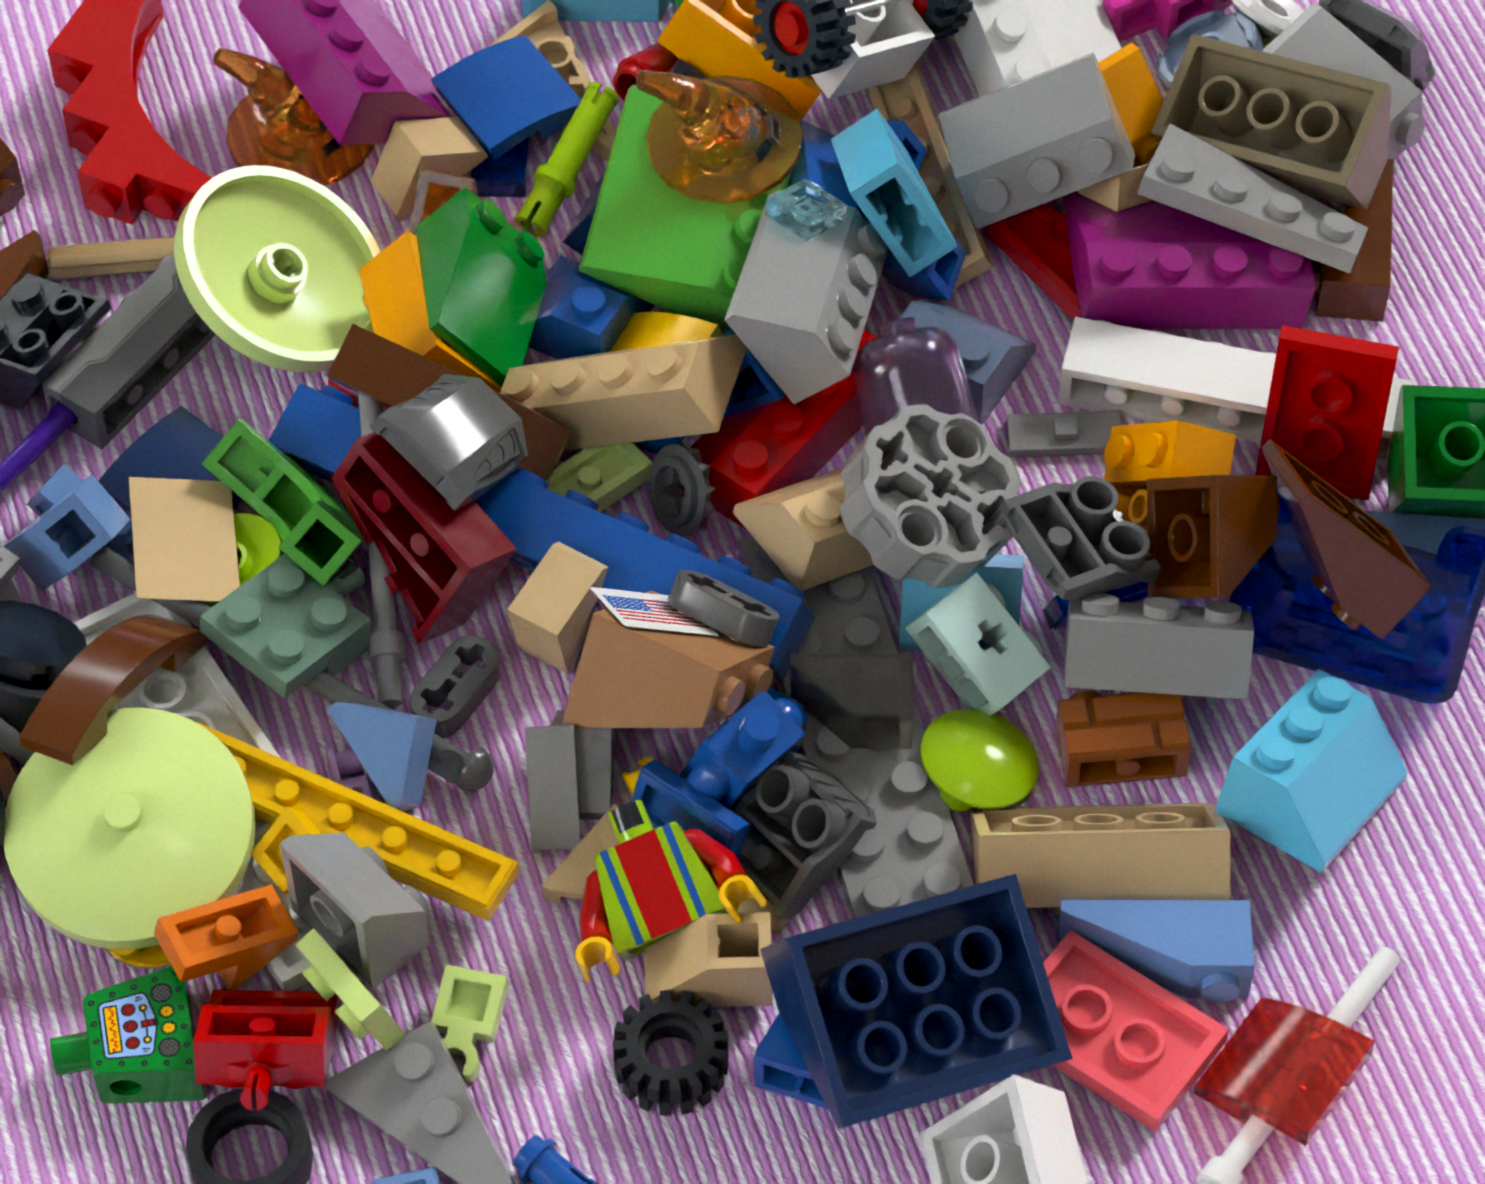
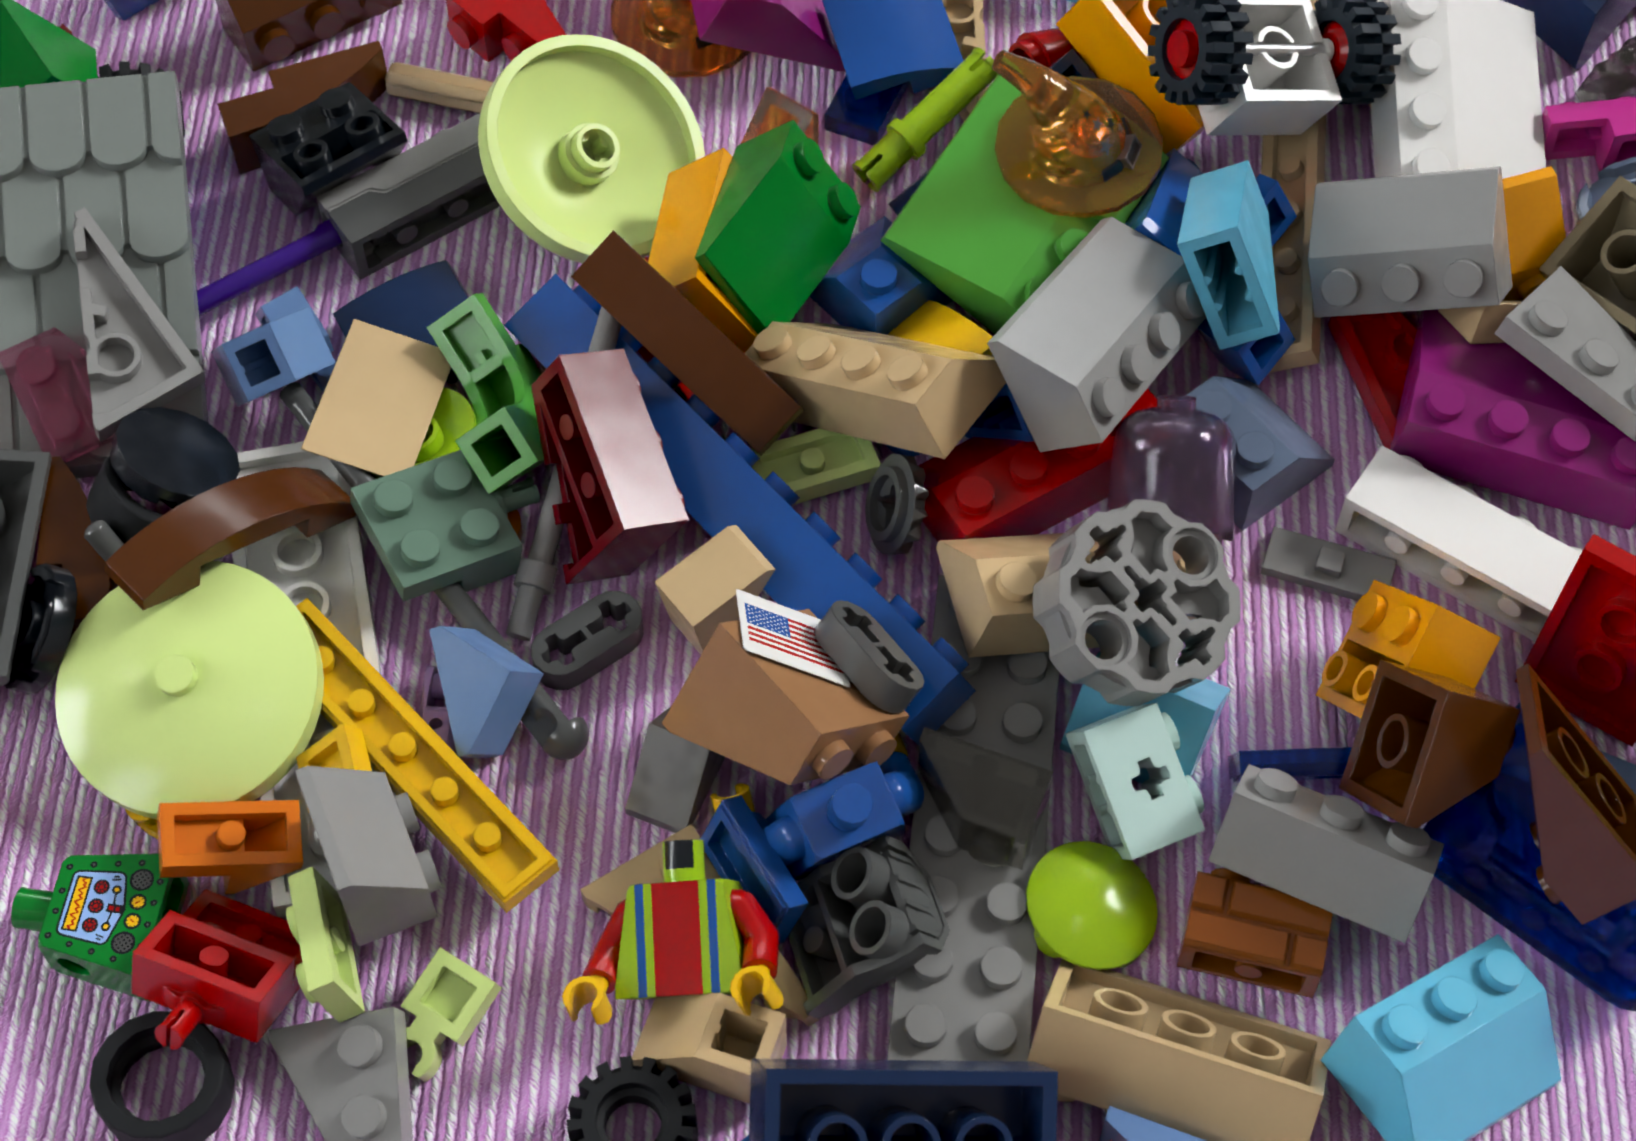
camera: 20 degrees right, 5 degrees up
(423, 143) = (795, 67): tan slope -> none
(456, 437) = (666, 383): dark grey slope -> none
(552, 787) = (631, 786): light grey piece -> none
(805, 209) = (1129, 247): clear light blue tile -> none
(1080, 538) = (1280, 703): dark grey slope -> none

